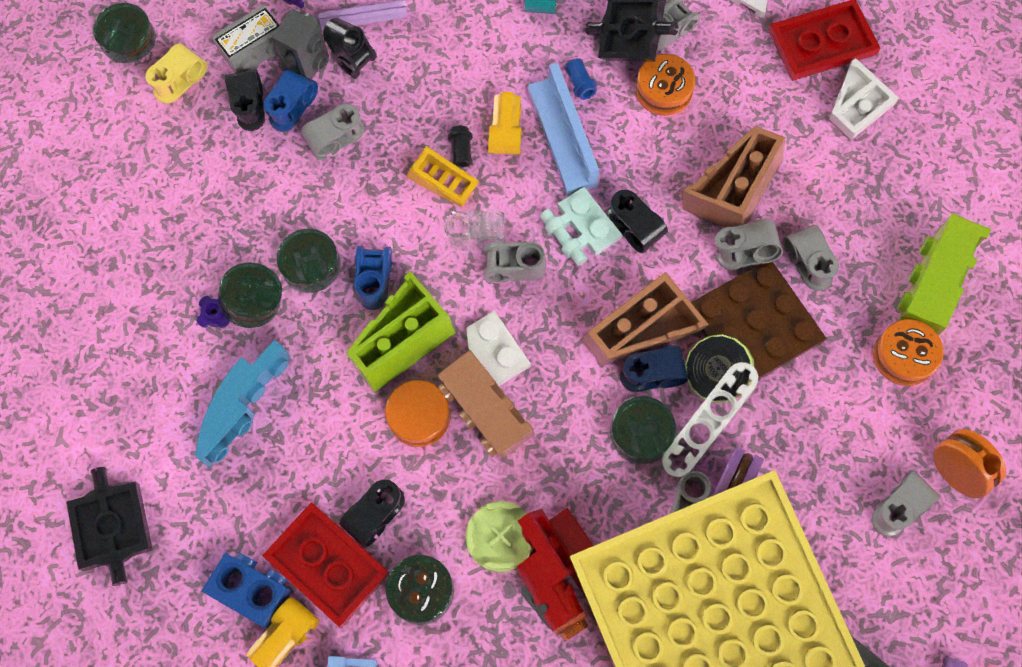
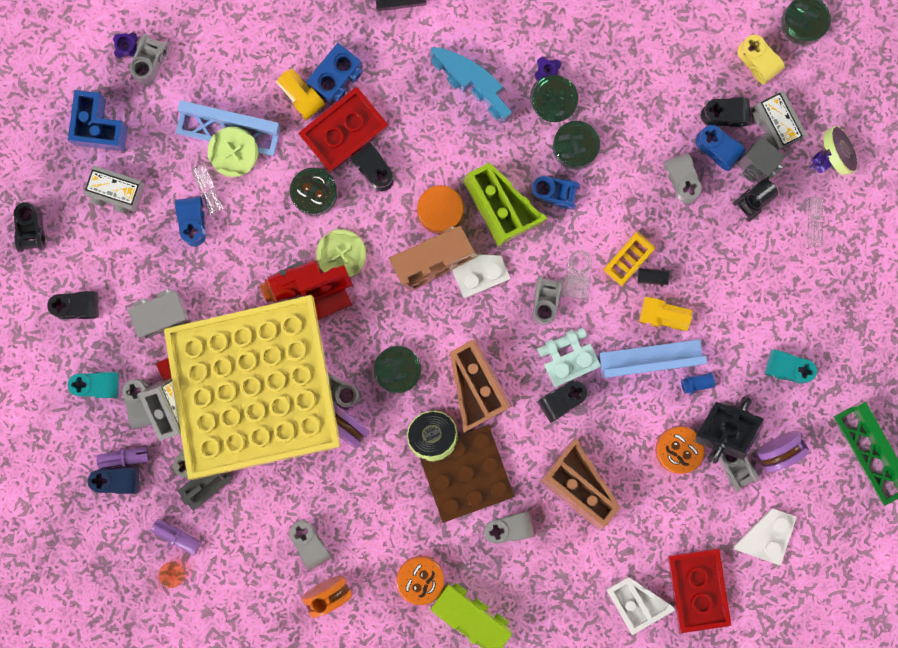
camera: 95 degrees right, 15 degrees up
(366, 13) = (791, 216): lavender axle -> none
(659, 367) = (441, 393): dark blue piece -> none
(705, 416) = (394, 418): white beam -> none
(751, 242) = (526, 485): light grey piece -> none

